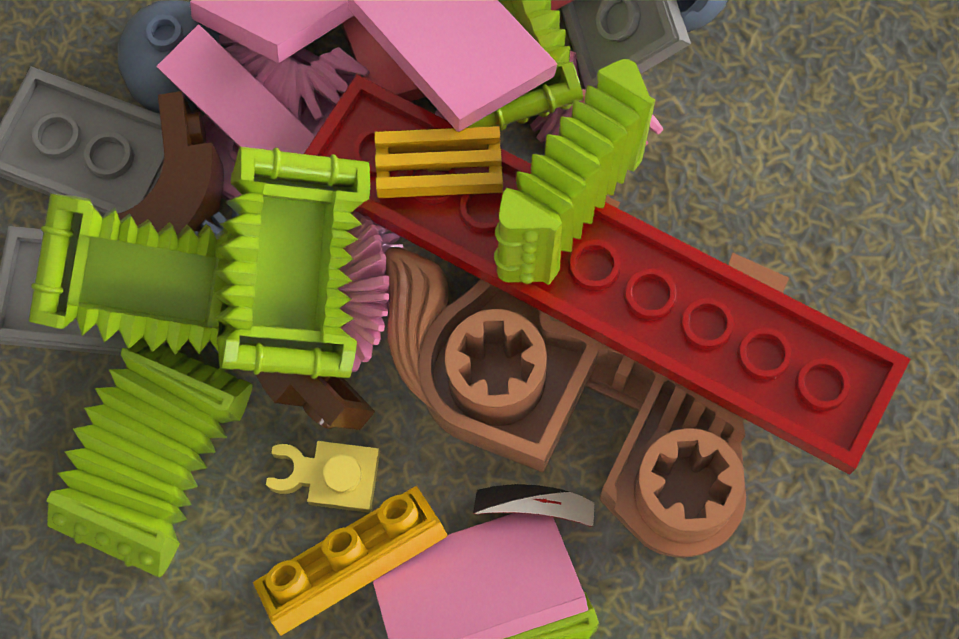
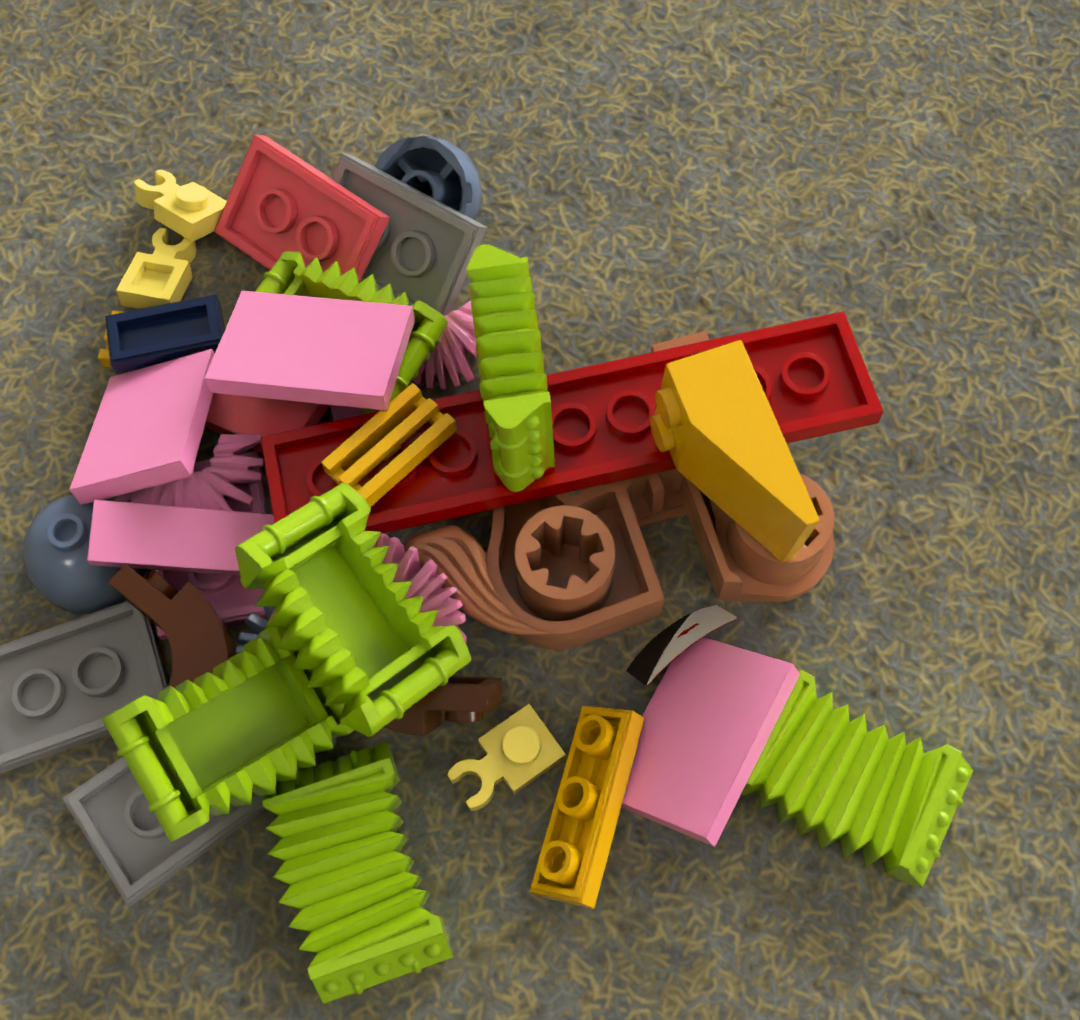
camera: 45 degrees left, 5 degrees down
(685, 356) = (732, 447): none -> yellow slope

